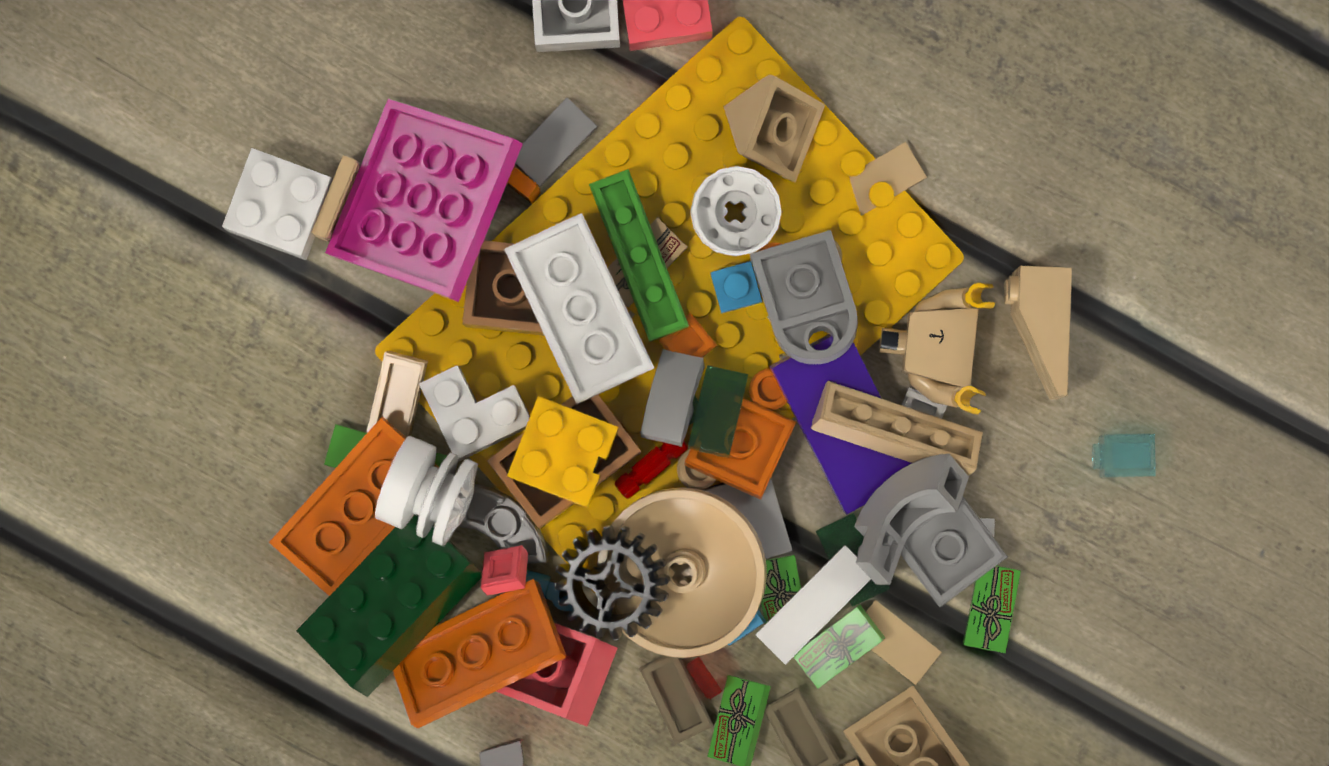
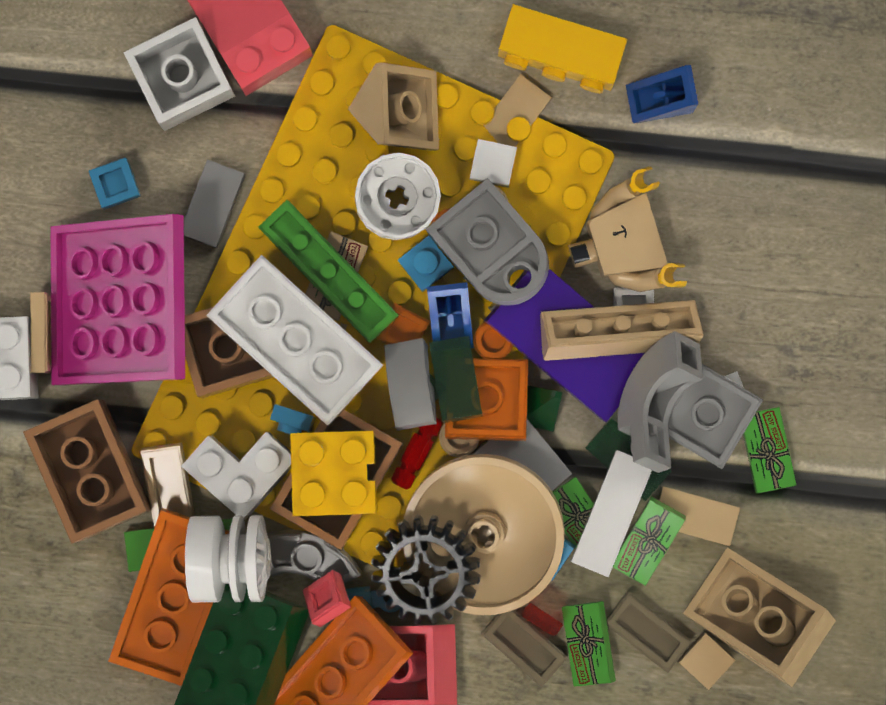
camera: 20 degrees left, 0 degrees up
(325, 350) = (87, 471): none -> medium nougat brick
(467, 83) = (114, 183): none -> dark azure plate
(523, 185) = (201, 252): orange tile -> none
(543, 384) = (291, 420): none -> dark azure plate
(739, 344) = (450, 311): none -> blue slope
(791, 474) = (543, 407): none -> dark green slope
(843, 217) = (493, 162): none -> white tile
(955, 134) = (561, 49): none -> yellow brick
(1034, 220) = (663, 95): none -> blue slope
(1042, 316) = (706, 178): tan slope -> none
(1125, 455) = (828, 268): clear light blue brick -> none

